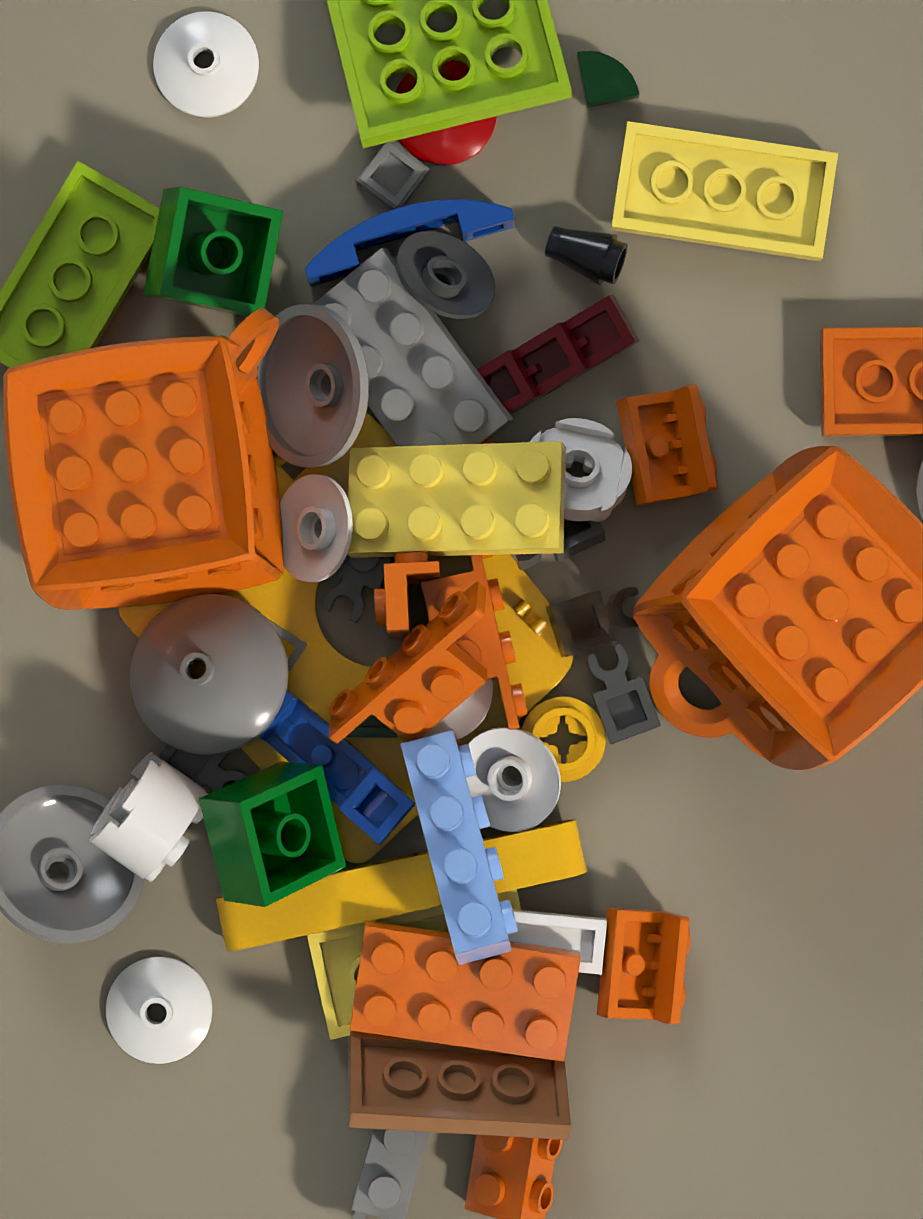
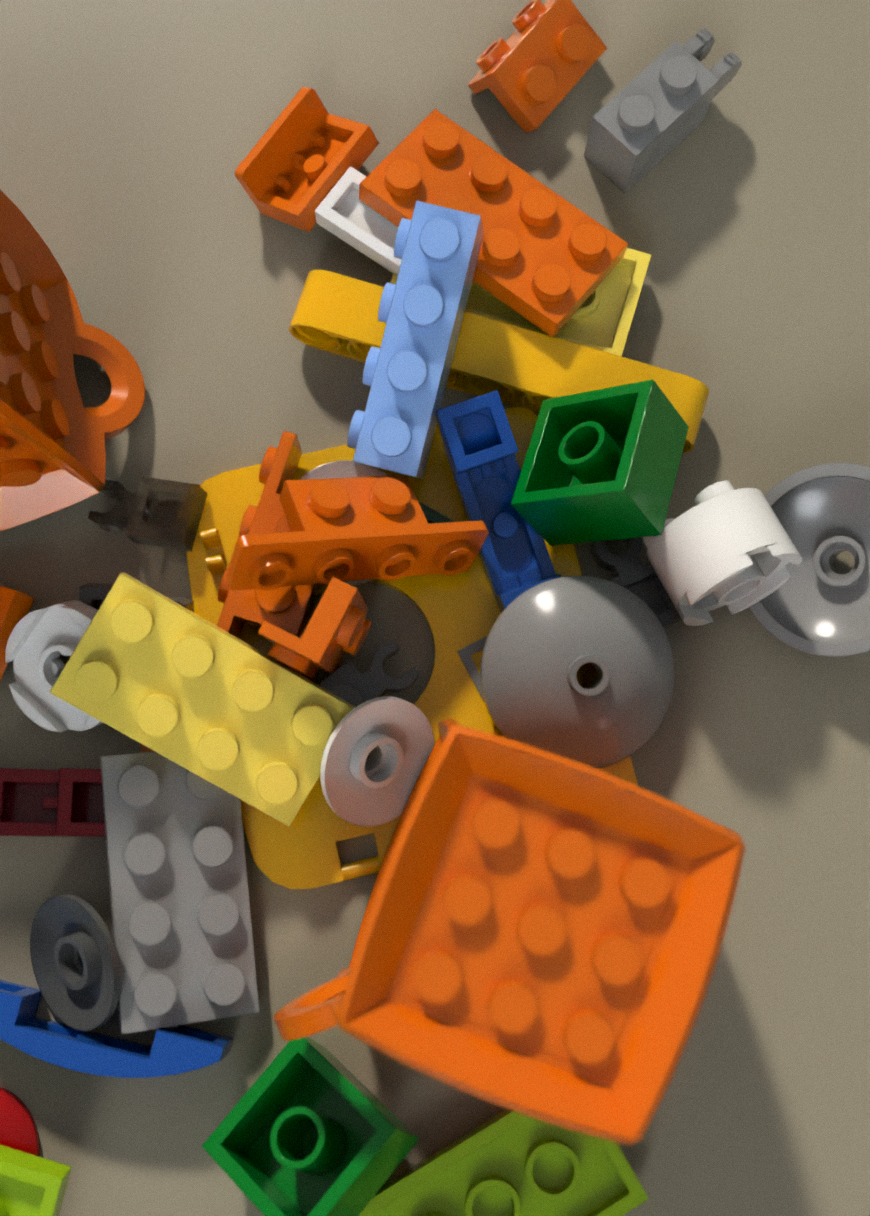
camera: 150 degrees left, 10 degrees down
(171, 985) = (790, 401): white dish -> none
(313, 386) = (316, 896): light grey dish -> none
(392, 175) = (68, 1114): light grey tile -> none
(454, 1089) = (560, 129): medium nougat plate -> none
(509, 803) = (326, 374): white dish -> none
(580, 720) = (247, 390): yellow gear -> none
(624, 703) = (172, 412): dark grey plate -> none

